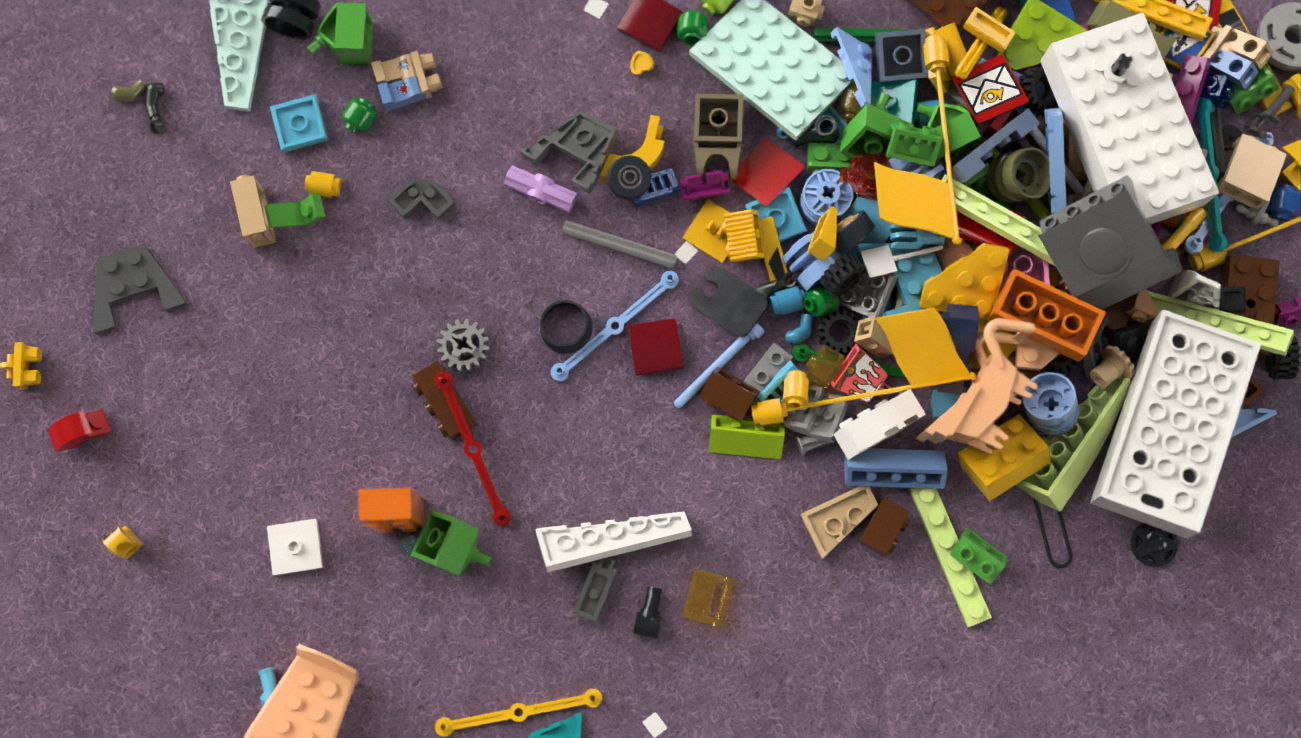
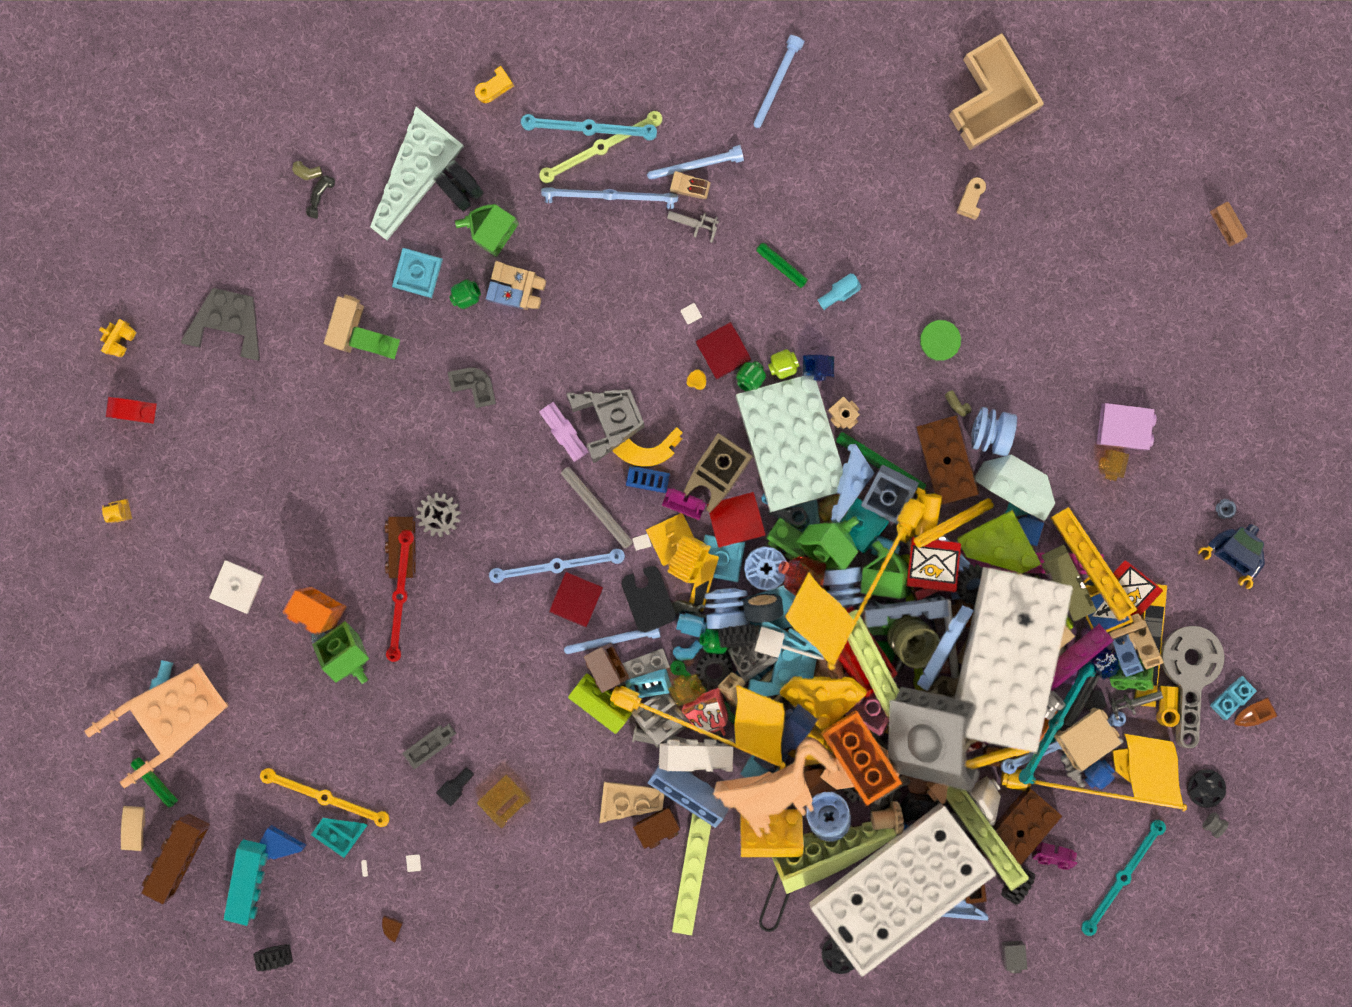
camera: 35 degrees right, 10 degrees up
(323, 183) = (407, 331): yellow brick -> none
(577, 344) = (534, 559): black tyre -> none
(578, 545) = (443, 712): white wing -> none
(629, 186) = (633, 461): black wheel -> none
(796, 389) = (652, 696): yellow brick -> none
(824, 236) = (740, 601): yellow slope -> none
(914, 143) = (848, 574): bright green bracket -> none
(979, 556) = (710, 888): bright green bracket -> none
(989, 30) = (963, 518): yellow tile -> none
(1233, 299) = (1007, 824): black tile -> none

